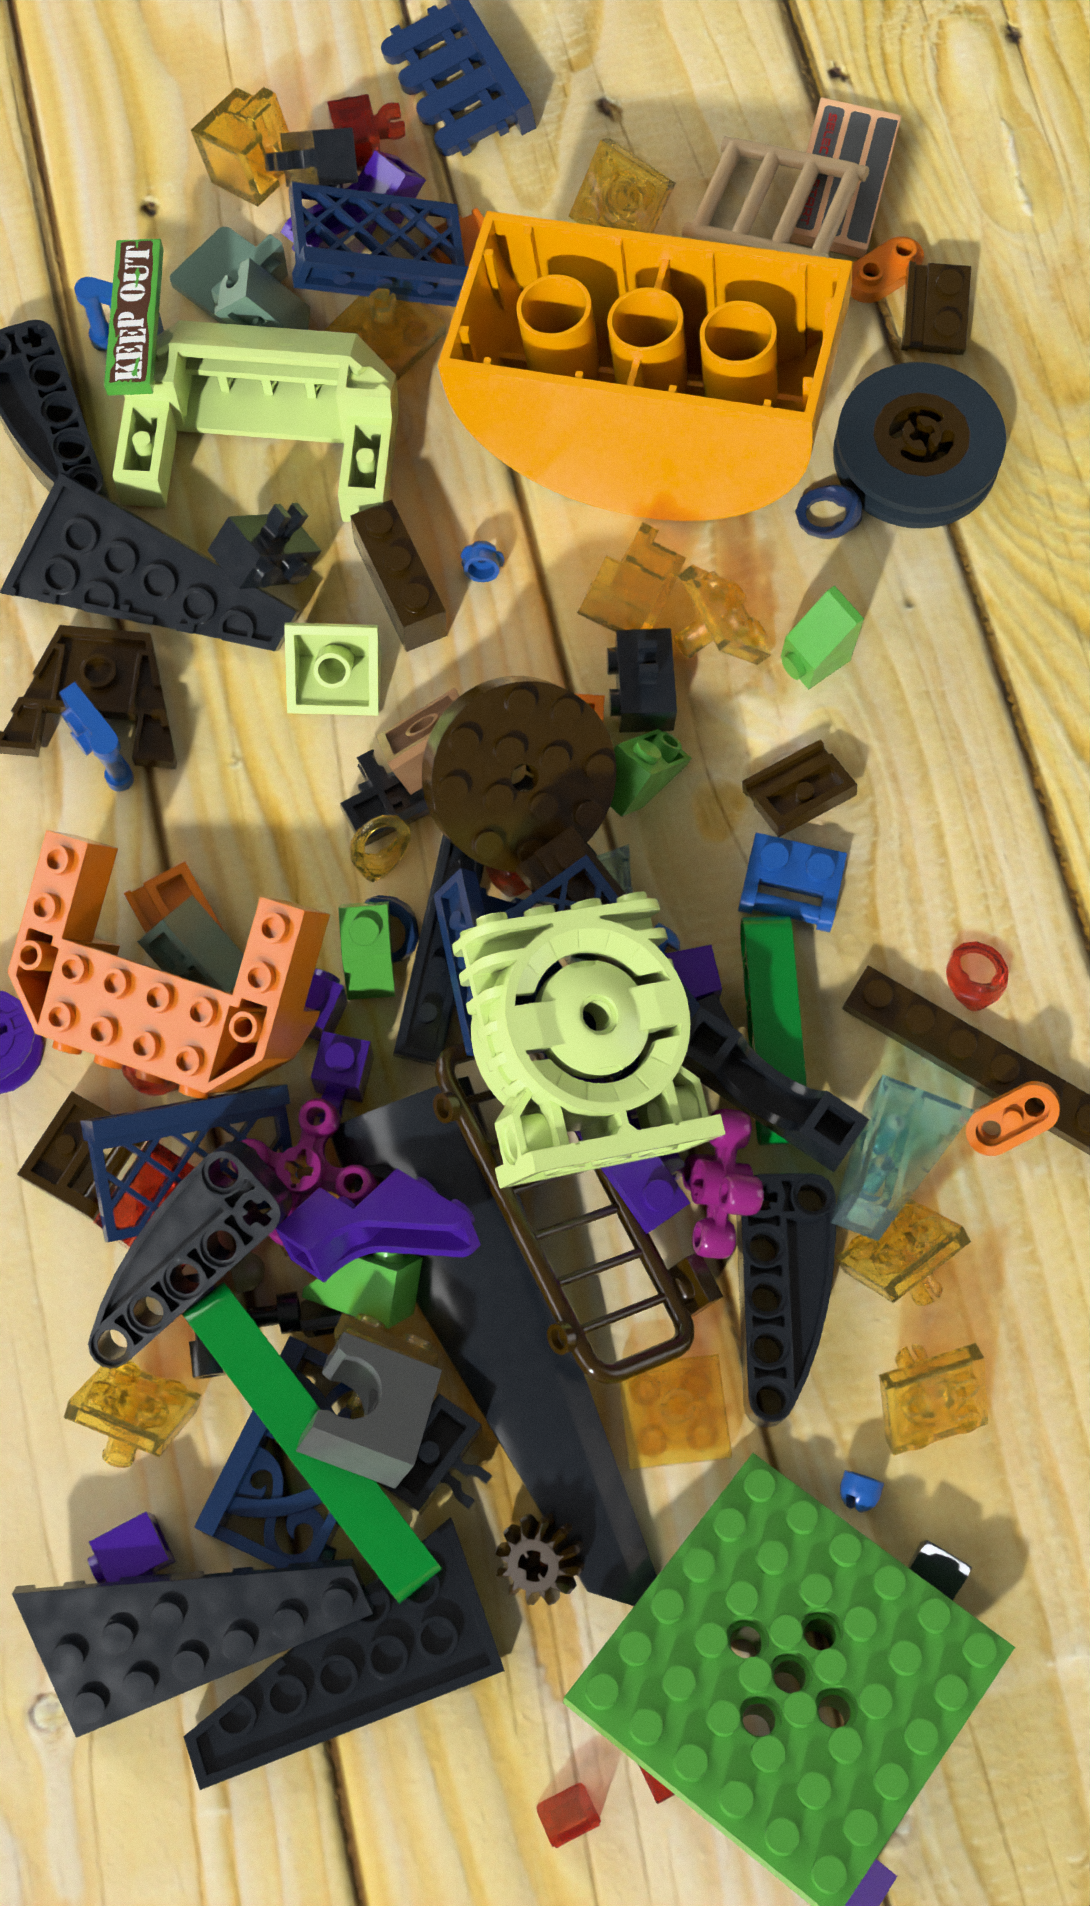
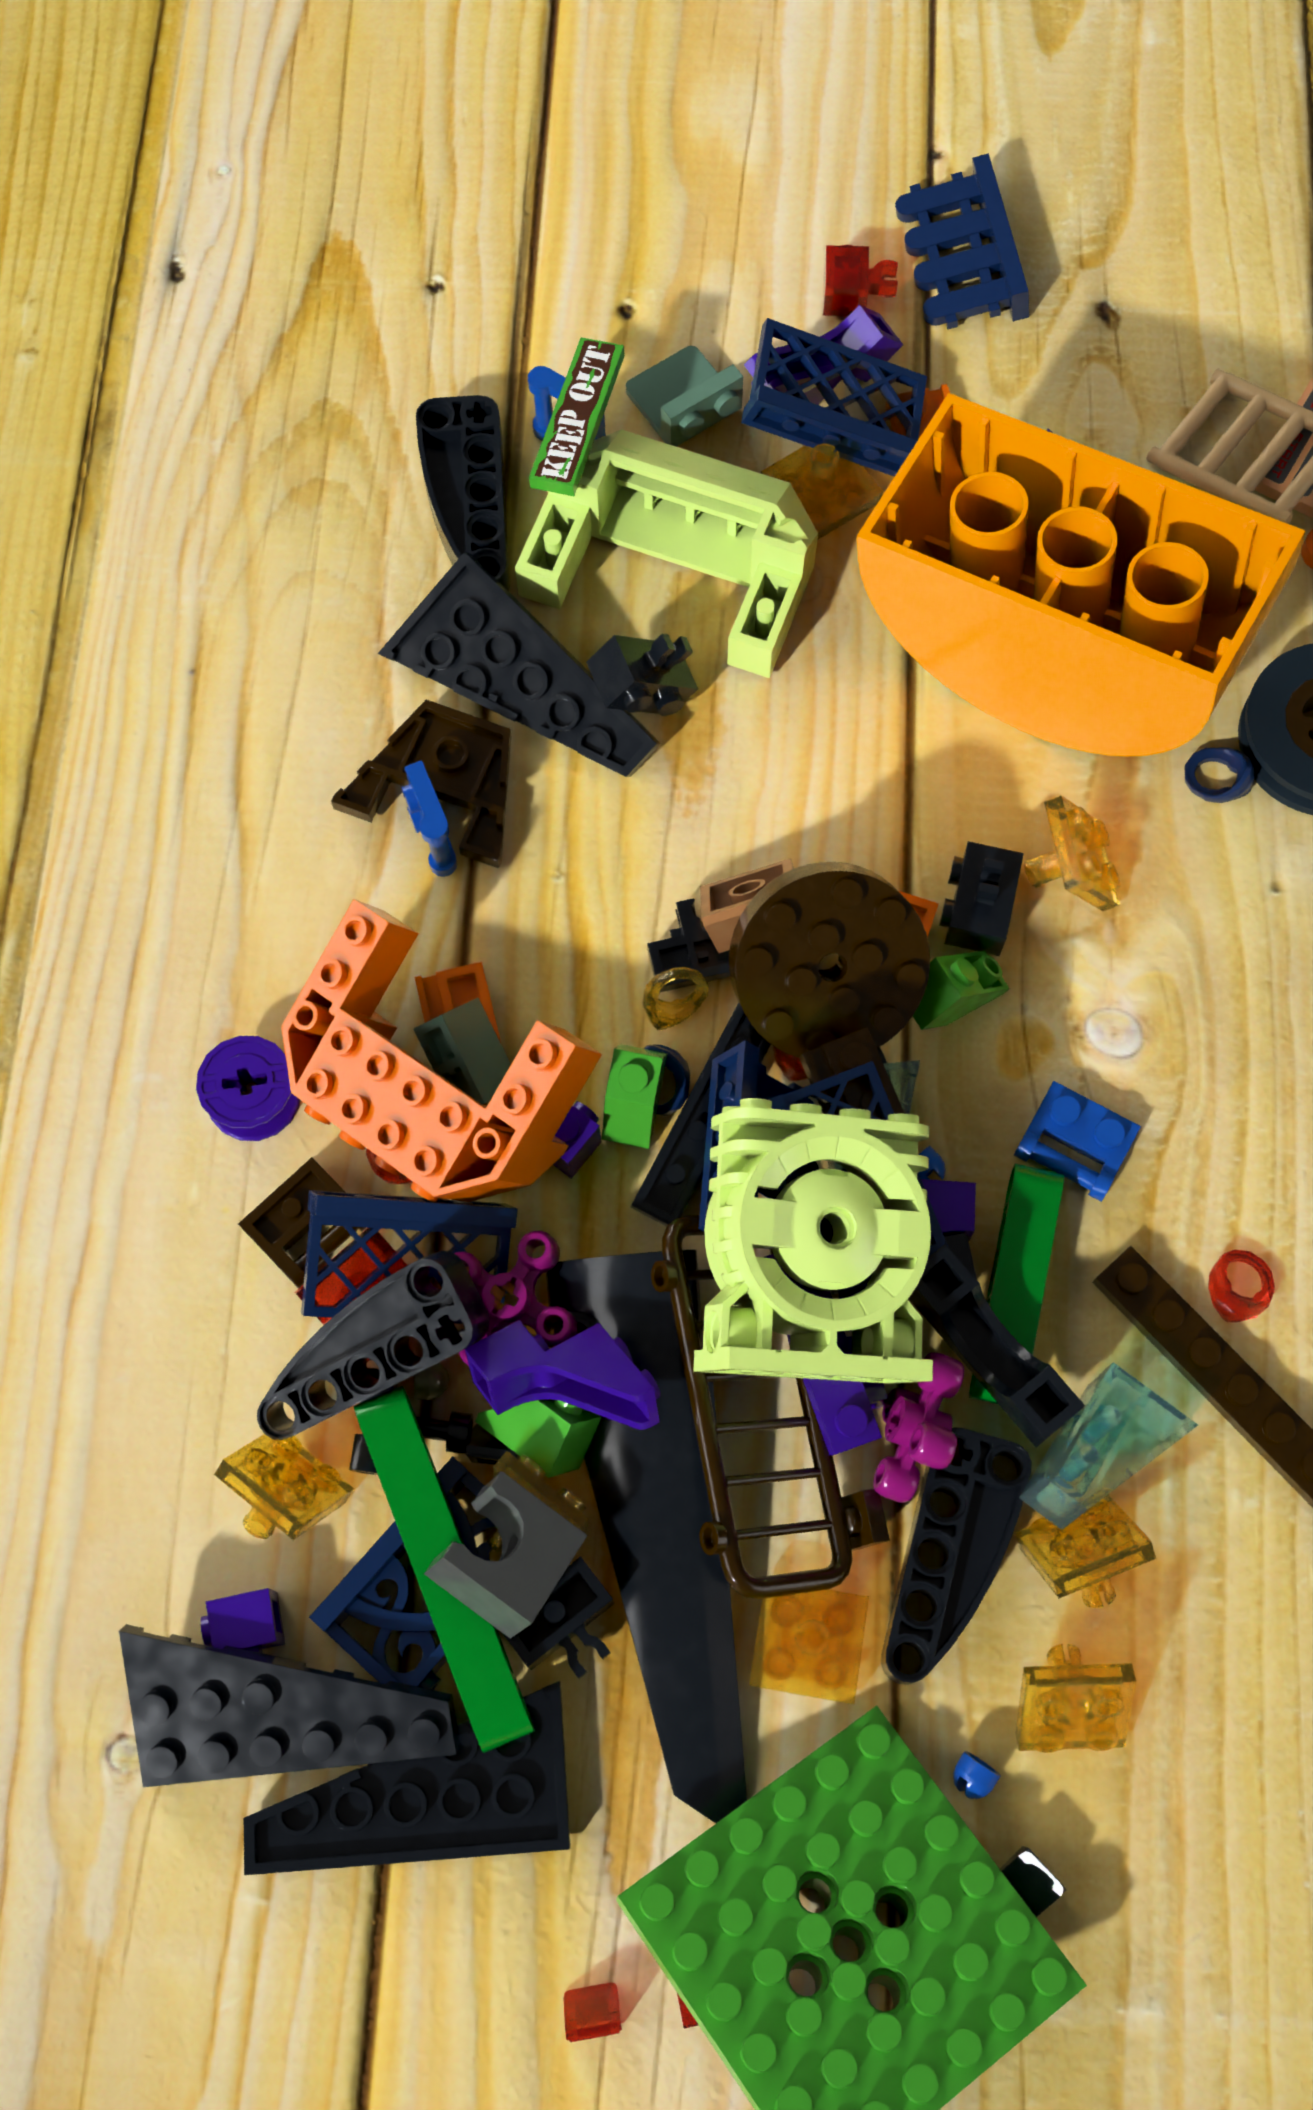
camera: 20 degrees right, 0 degrees up
(235, 140) = (735, 270): clear yellow plate -> none
(260, 300) = (706, 428): sand green hinge -> none
(316, 157) = (799, 299): black brick -> none
(333, 668) = (677, 809): yellowish green slope -> none
(341, 1069) = (575, 1208): dark purple brick -> none
(399, 575) = (767, 732): dark brown brick -> none
(481, 561) = (853, 738): blue plate -> none
(526, 1568) = (651, 1747): dark brown gear -> none
(621, 191) = (1094, 403): clear yellow plate -> none
(636, 588) = (997, 805): clear yellow plate -> none
(799, 788) = (1110, 1047): dark brown plate -> none
(822, 639) = (1174, 903): bright green slope -> none
(1015, 1119) = (1238, 1443): orange plate -> none

